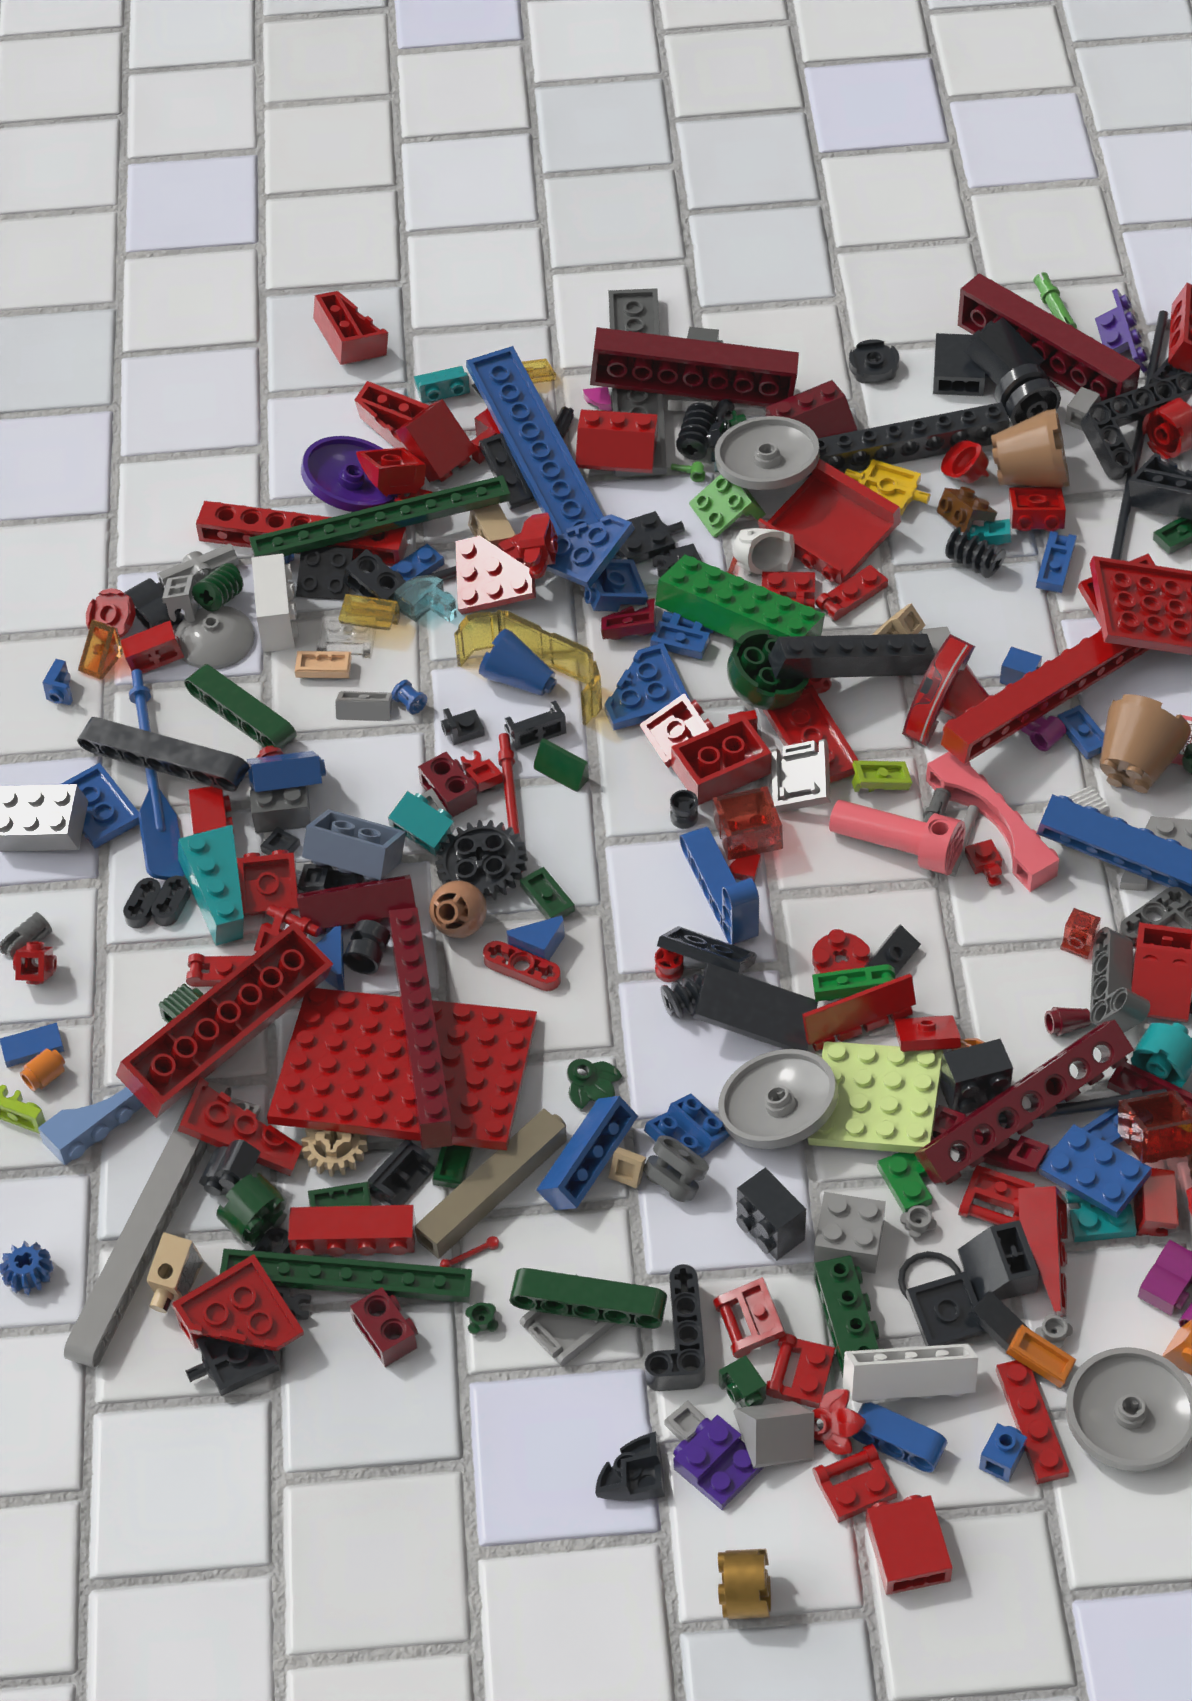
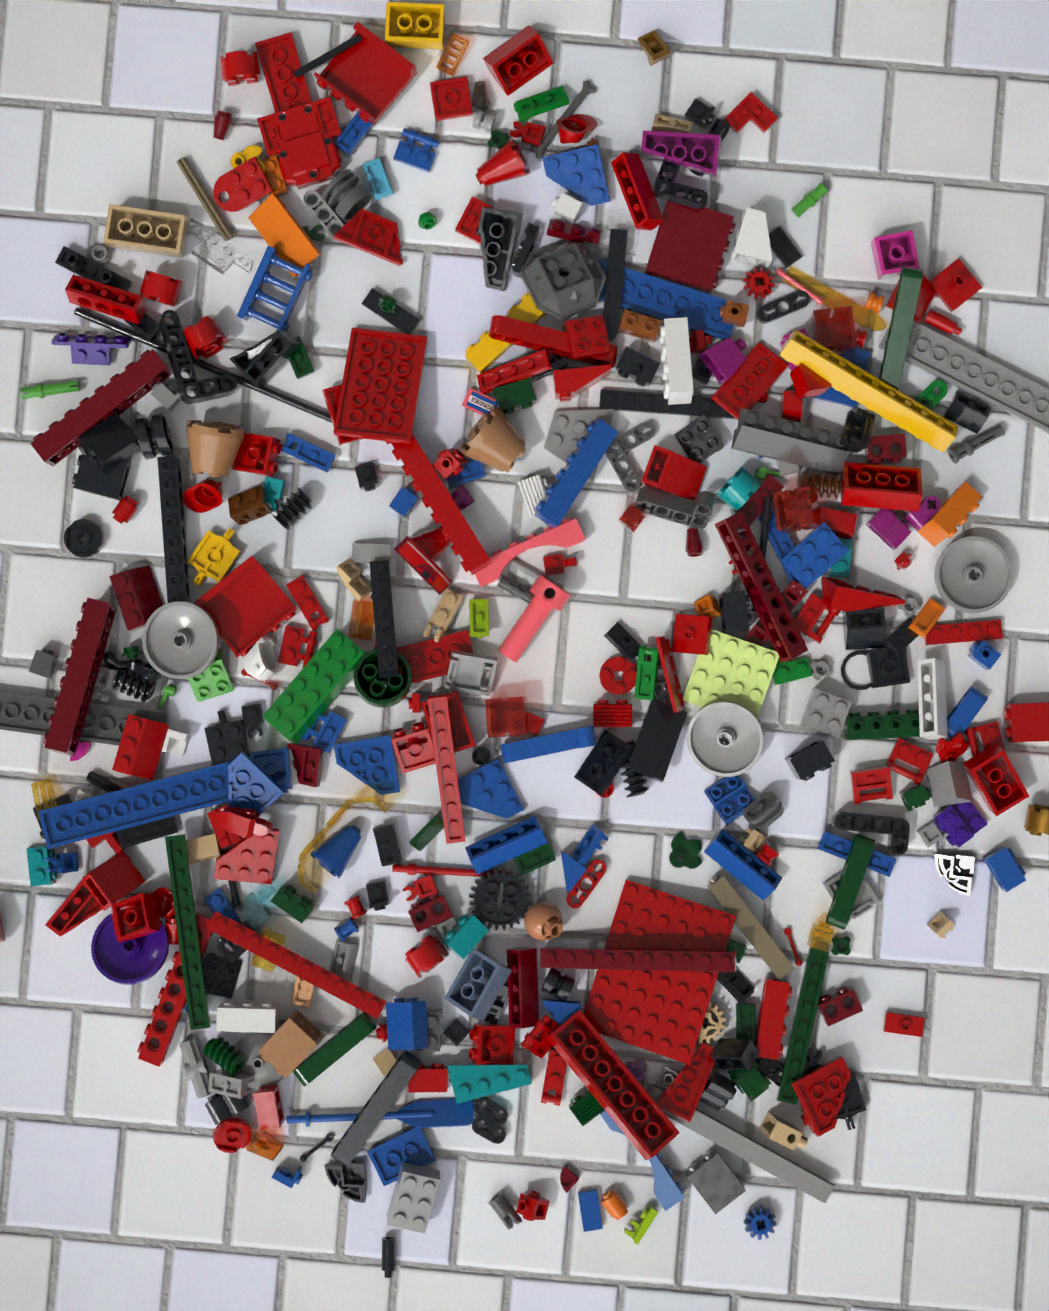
camera: 80 degrees left, 35 degrees up
(59, 755) = (349, 1179): none -> black brick
(77, 1011) = (567, 1178): none -> dark red tile
(84, 701) = (329, 1137): none -> black hinge
(87, 1196) = (715, 1181): none -> flat silver brick
(245, 652) = (291, 1044): none -> medium nougat slope
(246, 1062) = (639, 1066): none -> medium lavender plate
(291, 1178) = (734, 1054): none -> black brick
(351, 642) = (296, 964): none -> red plate
(366, 1431) = (903, 1024): none -> red plate
(384, 781) = (426, 956): none -> red brick
(435, 632) = (293, 903): none -> dark green brick
(440, 701) = (355, 907): none -> red bush
(452, 398) = (64, 863): none -> blue plate
(491, 1282) = (820, 936): none -> clear yellow brick
(540, 1456) = (940, 924): none -> tan tile
(561, 853) = (506, 845): none -> blue brick
(587, 959) = (587, 845): none -> blue plate
(609, 1188) = (767, 854): none -> red wheel
(629, 1341) = (840, 847): none -> blue plate
(630, 484) = (175, 742): none -> white panel
(635, 829) = (489, 791): none -> blue plate
(651, 1540) = (1004, 868): none -> blue brick
(656, 753) = (446, 768): none -> plate
(780, 955) = (612, 714): none -> red brick
(798, 1490) = (996, 779): none -> red brick
(873, 735) = (444, 614): none -> tan hinge
(922, 392) = (125, 509): none -> red brick
(1043, 629) = (367, 477): none -> black bracket
(1091, 698) = (449, 463): none -> red brick
(1124, 1308) = (903, 560): none -> red plate

